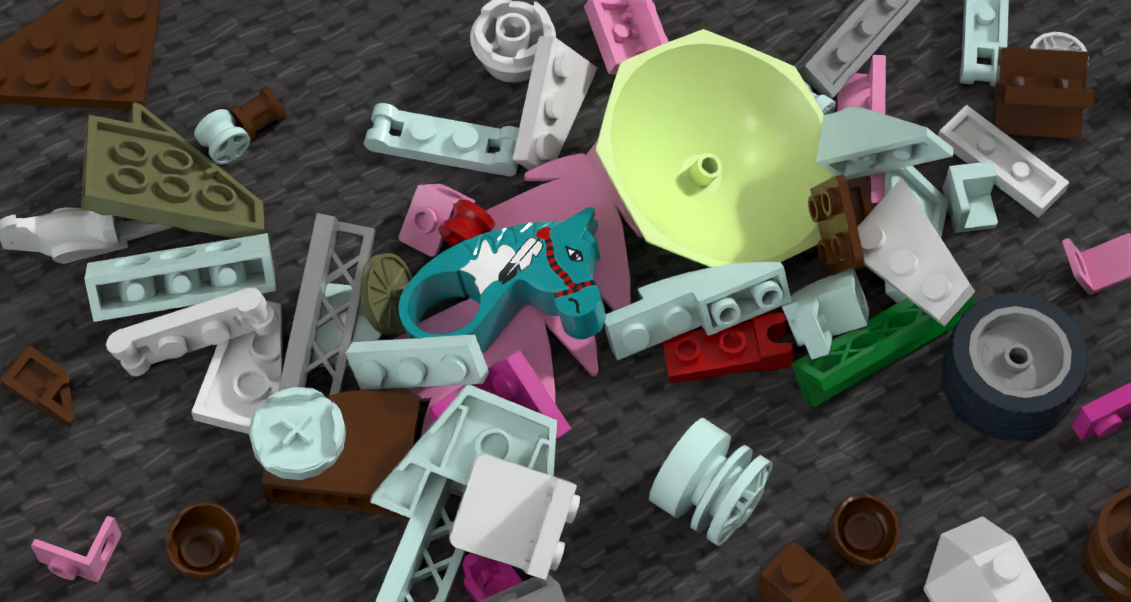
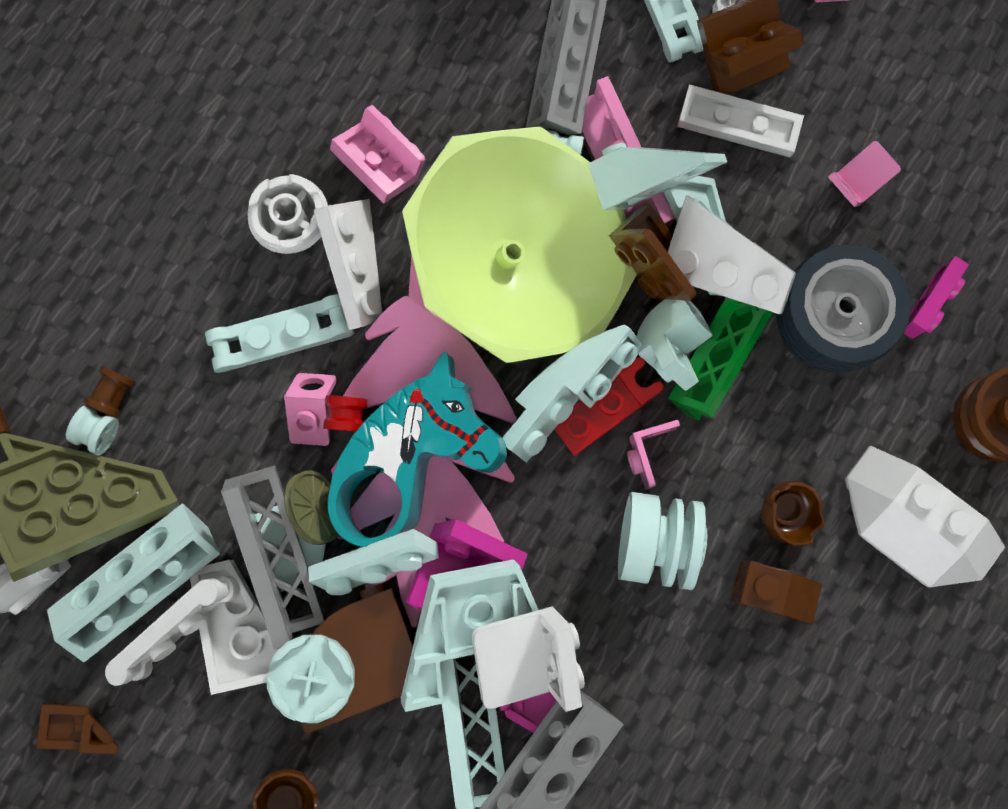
camera: 25 degrees left, 20 degrees up
(745, 391) = (638, 458): none -> bright pink bracket
(969, 196) = (737, 174): light aqua panel -> none

